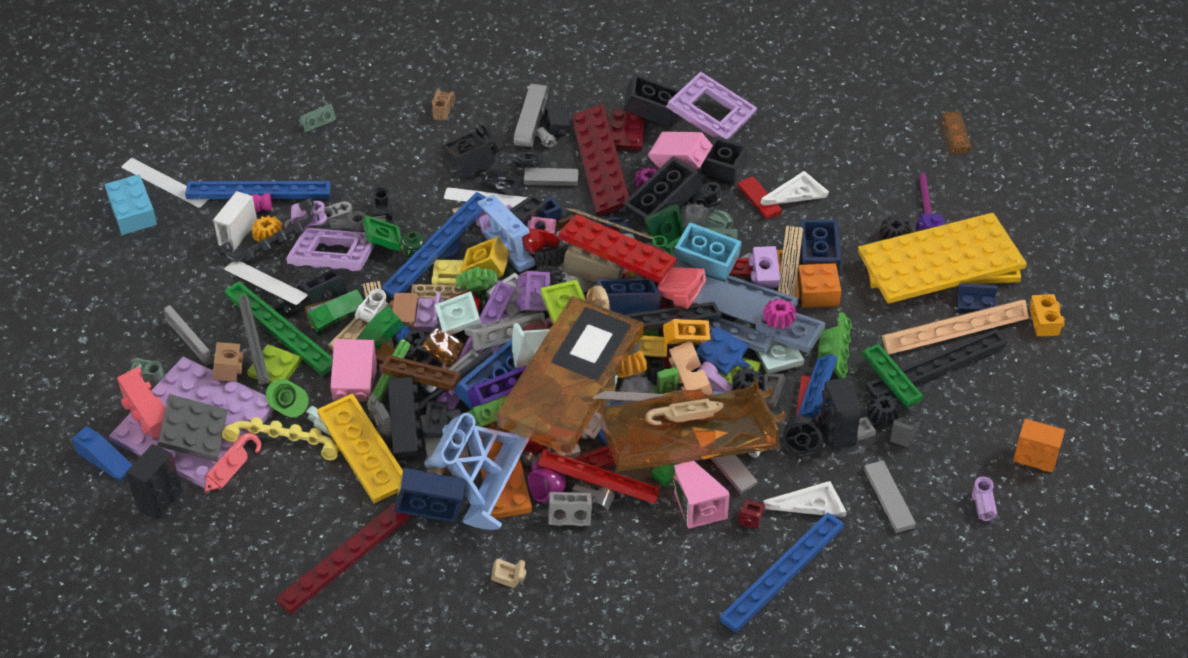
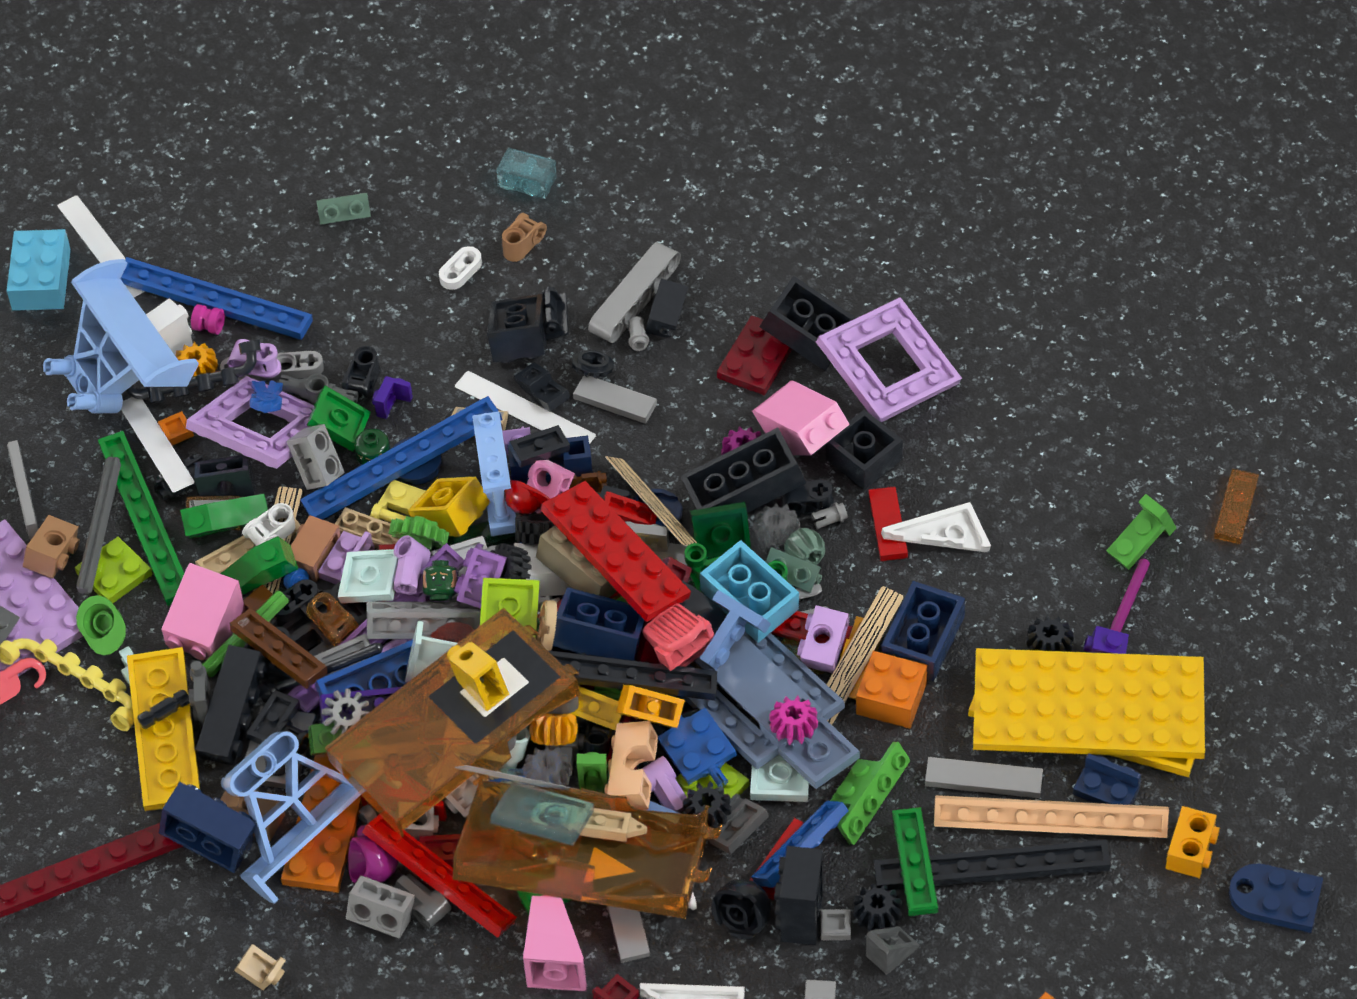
camera: 25 degrees right, 5 degrees up
(213, 260) = (115, 345): none -> light blue piece
(274, 269) = (175, 428): none -> orange plate
(329, 232) = (266, 398): none -> blue piece
(360, 433) = (163, 709): none -> black axle
(381, 257) = (315, 456): none -> light grey brick
(408, 209) = (387, 394): none -> dark purple bracket
(412, 131) = (456, 271): none -> white plate
(426, 68) = (526, 173): none -> clear light blue brick
(483, 298) = (411, 560): none -> lavender piece
(489, 386) = (337, 708): none -> light grey gear
(508, 302) = (440, 580): none -> dark green head
(581, 335) = (469, 665): none -> yellow torso
(600, 159) = (694, 392): dark red plate -> none
(655, 413) = (542, 813): none -> clear light blue tile
(715, 263) = (730, 629): none -> medium blue bracket
(725, 200) = (831, 515): none -> light grey pin
(901, 318) = (983, 777): none -> light grey tile
(914, 157) = (1141, 532): none -> bright green bracket
(1111, 330) = (1277, 896): none -> dark blue plate

